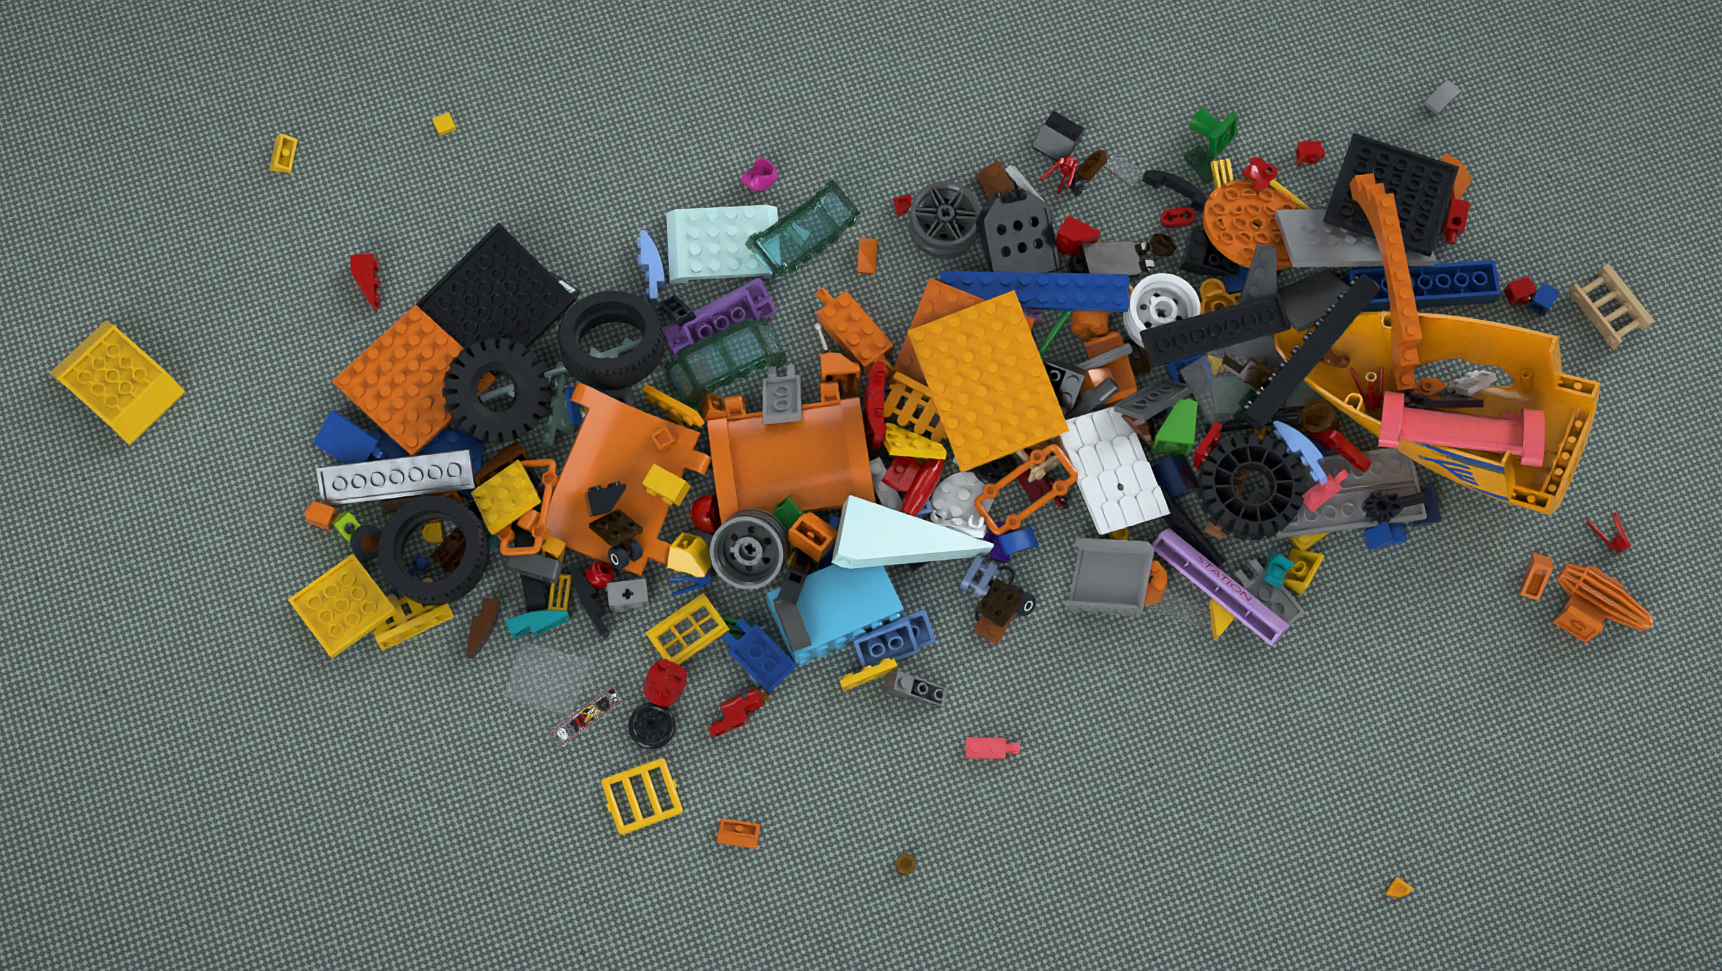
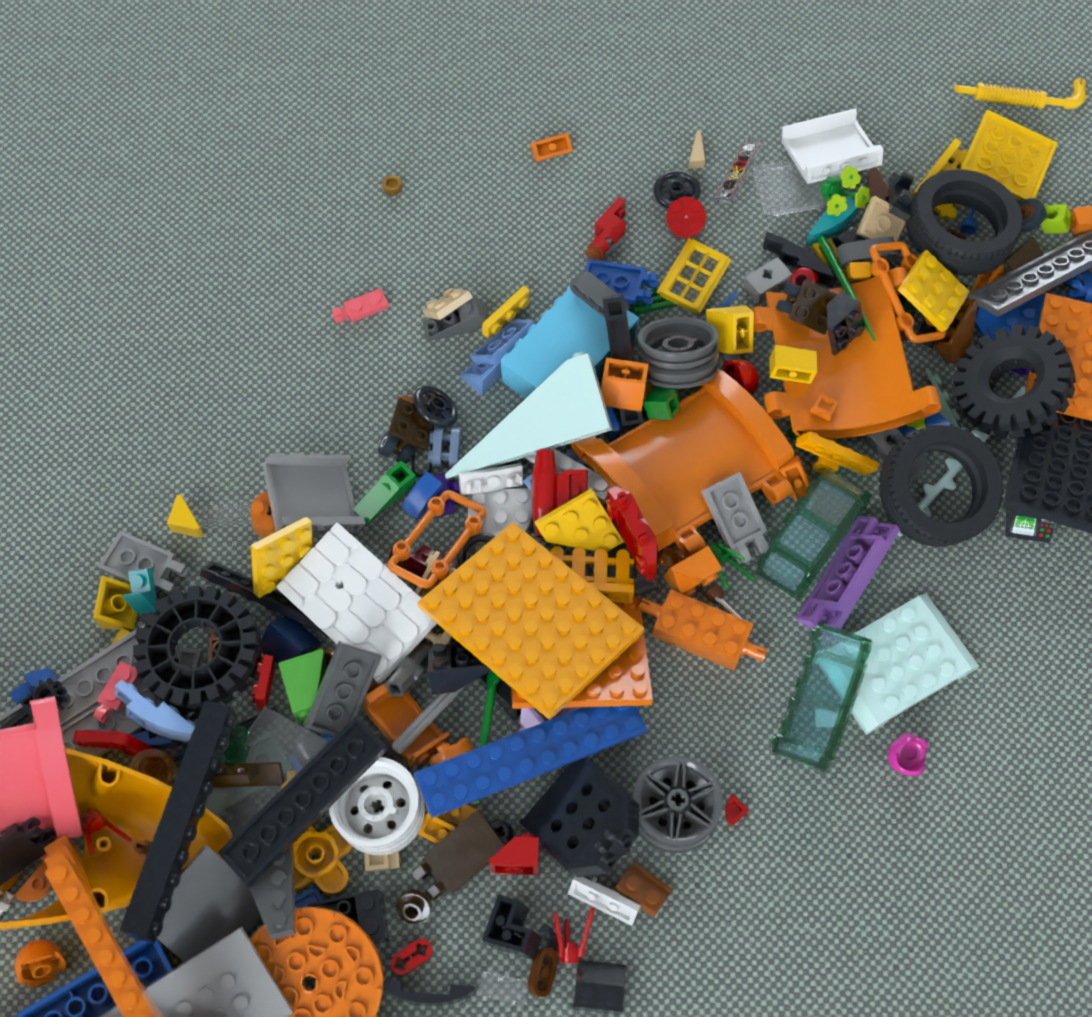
camera: 160 degrees right, 5 degrees down
(279, 660) = (1028, 98): none -> yellow piece
(469, 605) = (900, 195): none -> black hinge
(492, 692) = (829, 144): none -> white panel
(501, 588) = (879, 222): none -> tan plate
(510, 625) = (831, 189): none -> lime plant
(570, 550) = (841, 277): none -> green piece
(612, 752) = (697, 157): none -> tan piece
(624, 777) = (661, 156): yellow bar -> none
(651, 266) = (959, 604): light blue slope -> none
(677, 310) = (897, 555): black plate -> none
(808, 383) = (722, 554): none -> green plant
(867, 256) = (740, 729): orange slope -> none
(917, 703) = (448, 303): none -> tan plate
(984, 618) = (436, 406): none -> black plate
(1046, 558) = (386, 492): none -> green slope
(1094, 378) = (415, 701): orange slope -> none
(1106, 194) = (506, 929): none -> black brick
(1156, 525) = (279, 554): none -> yellow plate
(1220, 586) = (181, 538): lavender brick -> none

